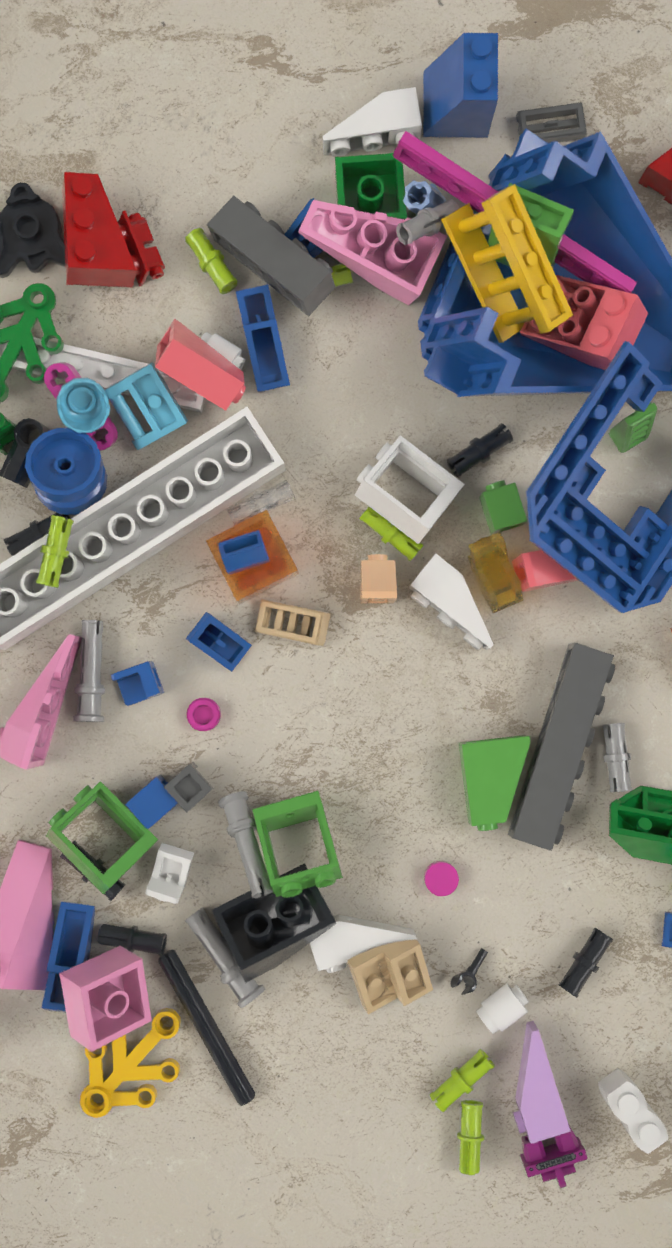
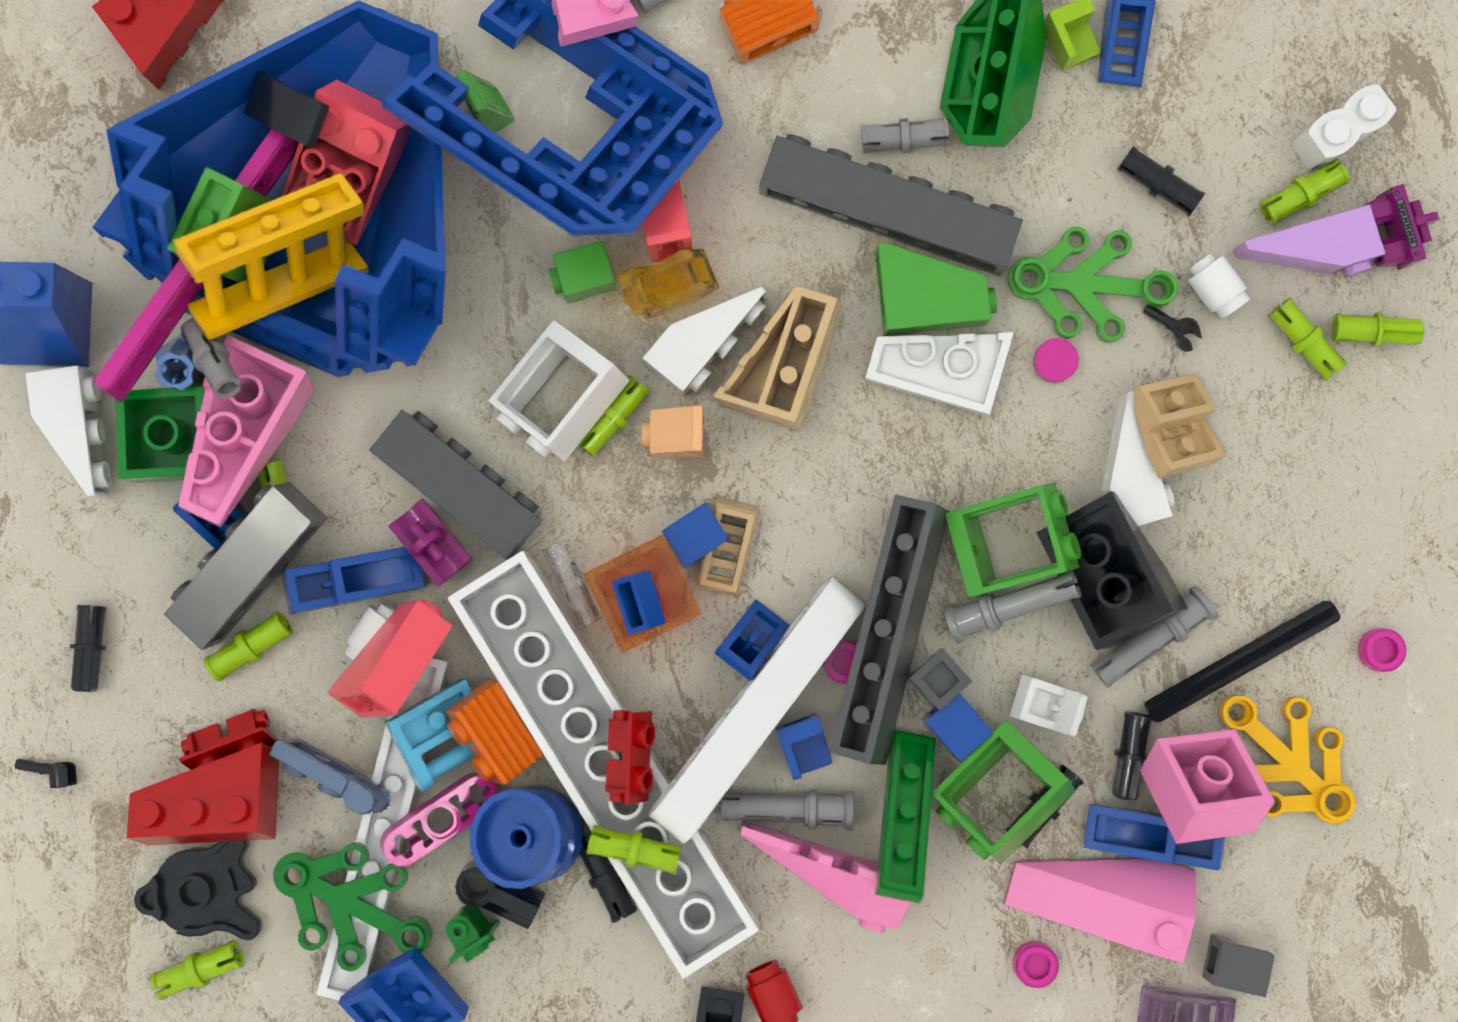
camera: 90 degrees left, 0 degrees up
(81, 761) = (906, 817): none -> green tile
(83, 405) = (441, 812): medium azure hair -> none
(109, 547) = (631, 777): none -> red hinge
(113, 324) = (333, 776): none -> sand blue hinge
(115, 125) = (60, 774): none -> black hand
(145, 444) = (493, 732): none -> orange brick
(163, 645) = (756, 710): none -> white beam
(208, 142) = (87, 649): none -> black axle
(216, 1139) = (1382, 650): none -> dark pink tile
(225, 748) = (889, 631): none -> dark grey brick
(290, 394) = (430, 542): none -> magenta hips
(298, 596) = (695, 535): none -> blue panel
(336, 413) = (457, 485): none -> dark grey brick
(432, 791) = (945, 369): none -> white wing
(435, 665) = (786, 361): none -> tan wedge
(480, 450) = (507, 300): black pin -> none
(503, 900) = (1083, 283): none -> bright green plant
(552, 112) = (58, 165): dark grey tile -> none
(580, 1078) = (1304, 192): none -> lime pin
(621, 272) = (286, 110): none -> black slope

